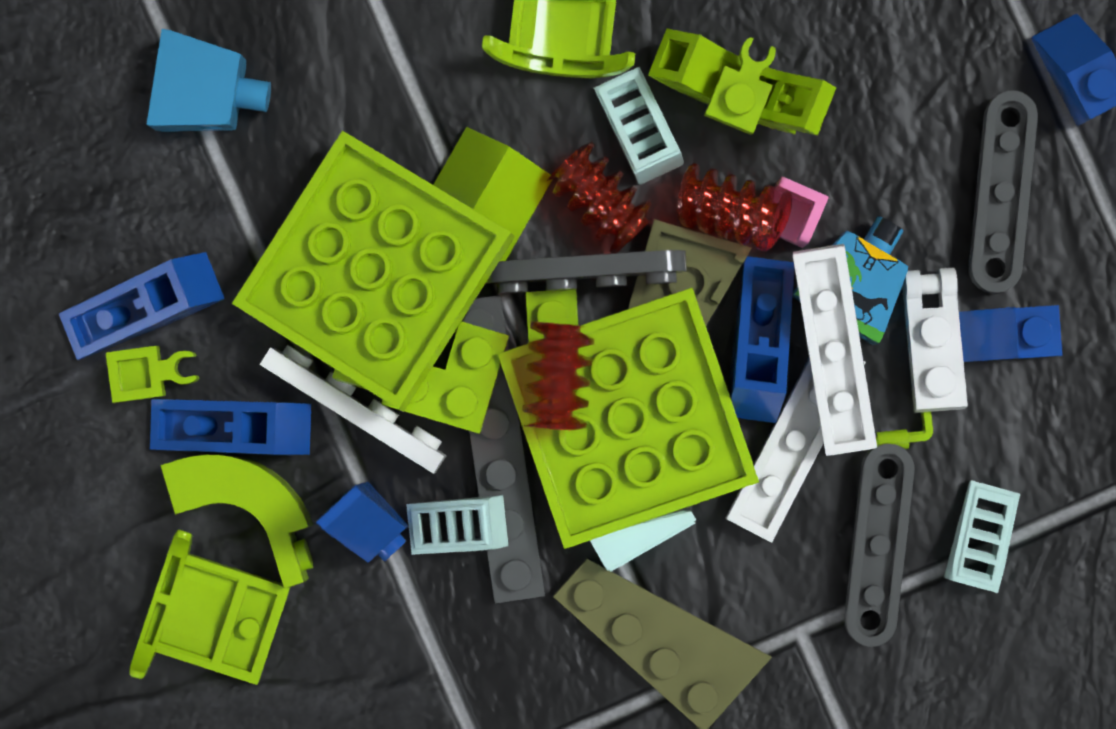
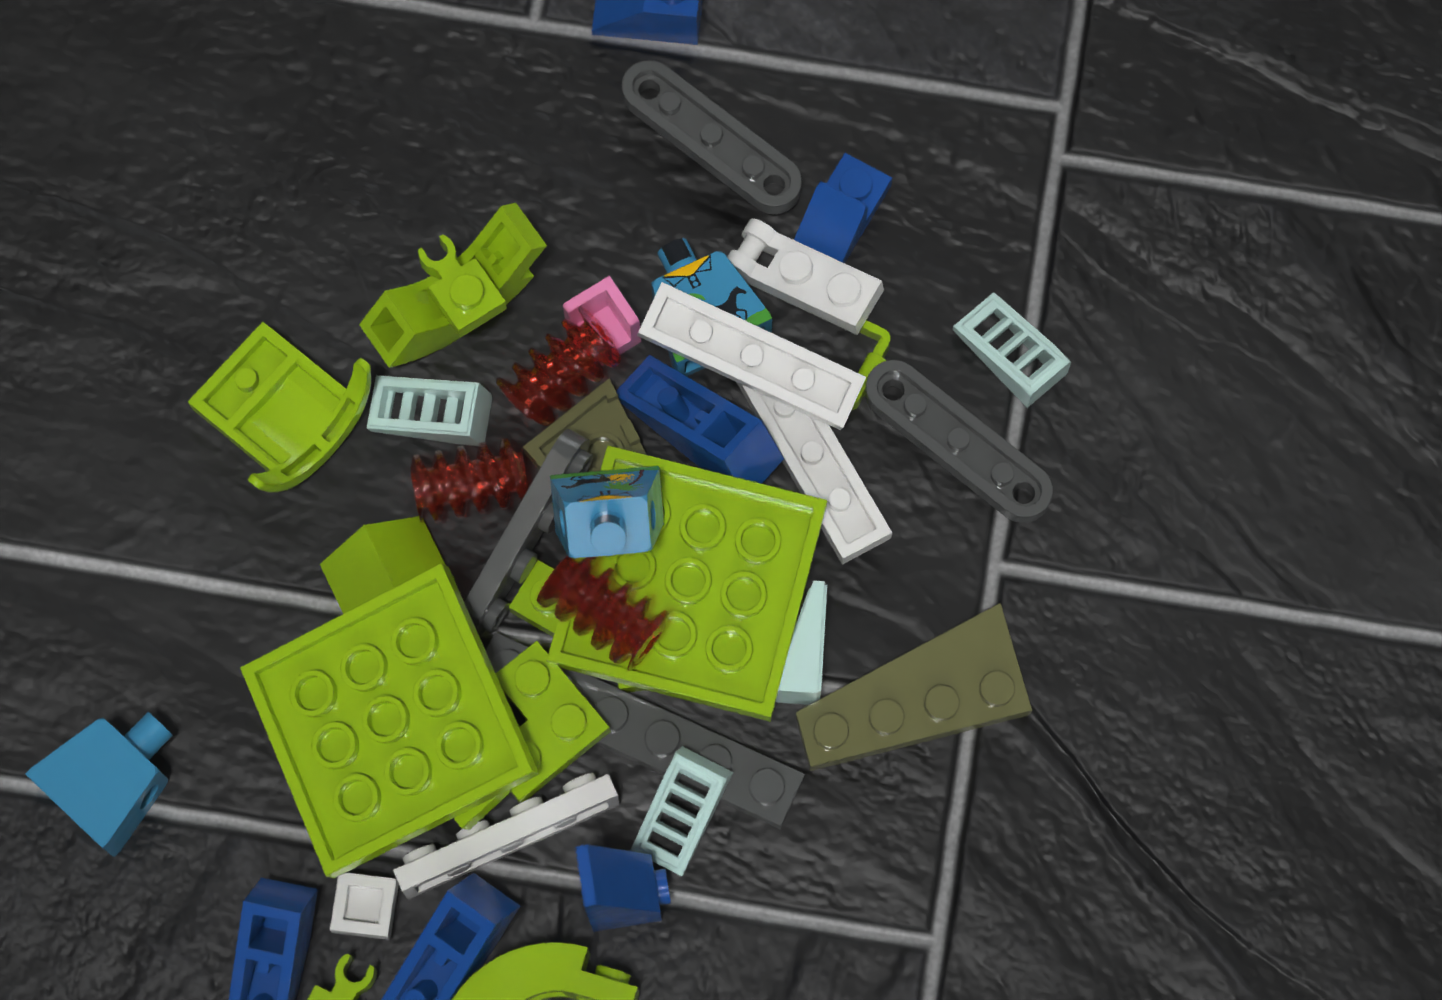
camera: 55 degrees left, 15 degrees down
(236, 340) = (364, 906): none -> white plate
(631, 330) = (608, 511): none -> dark azure torso

